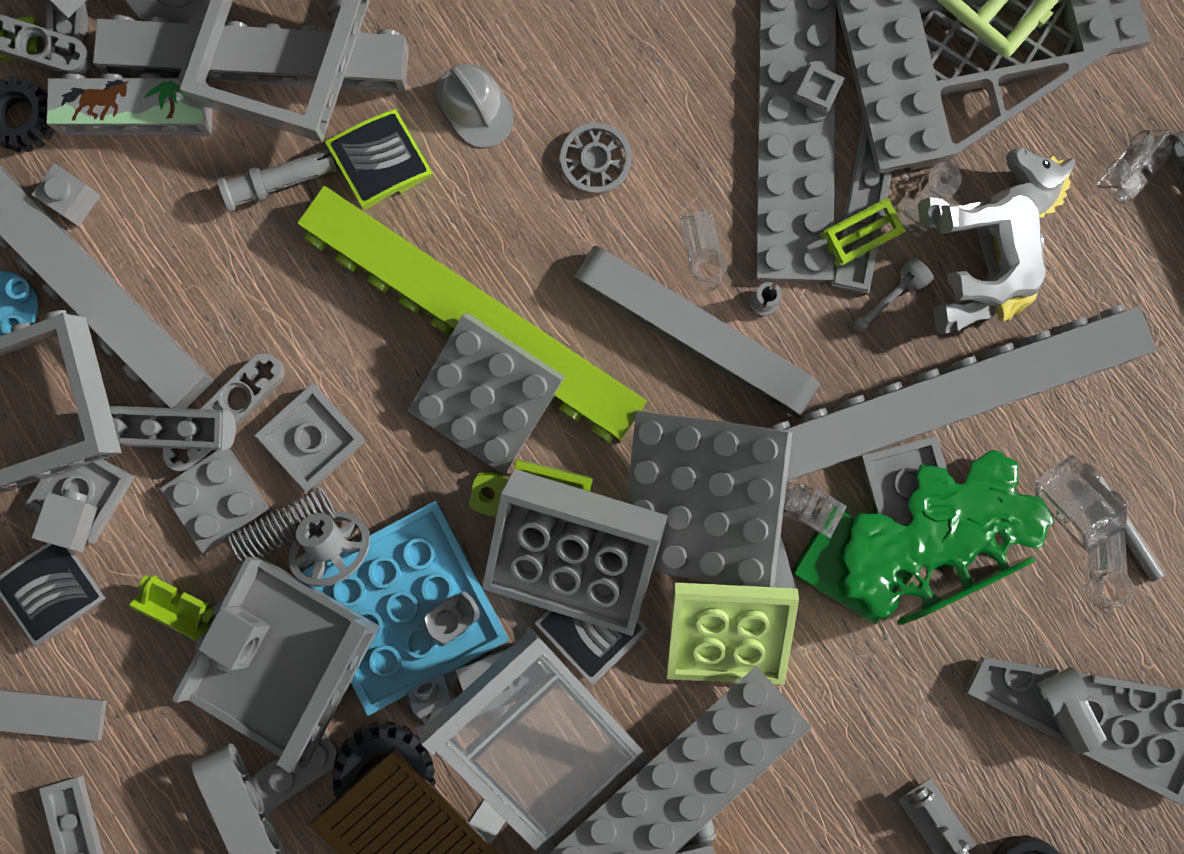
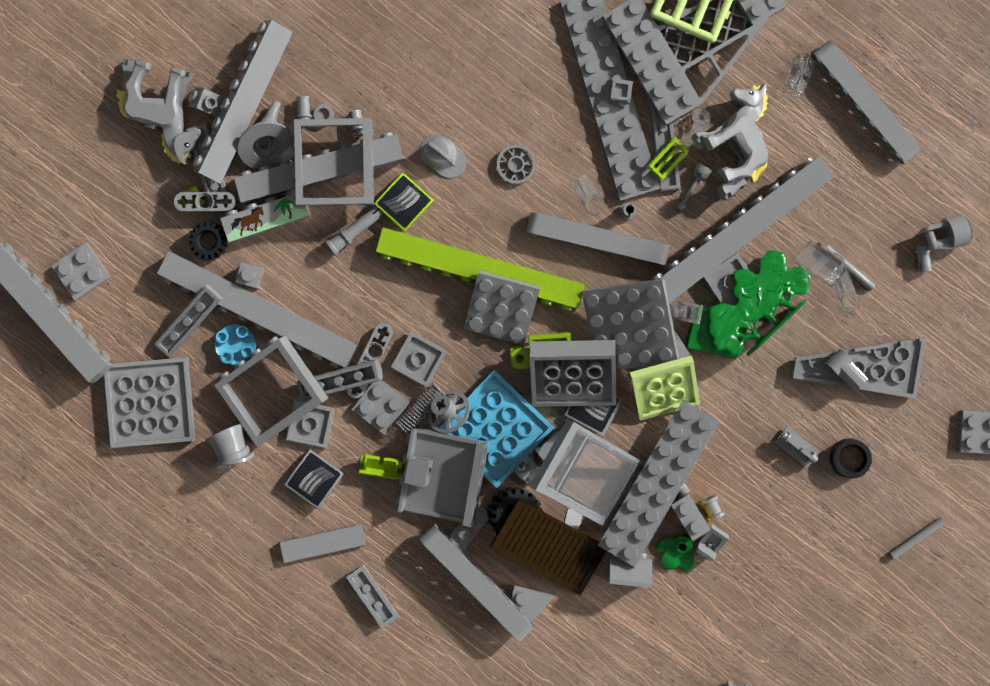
camera: 15 degrees left, 5 degrees up
(65, 520) = (312, 441): light grey brick -> none
(451, 618) = (522, 426): light grey hair -> none

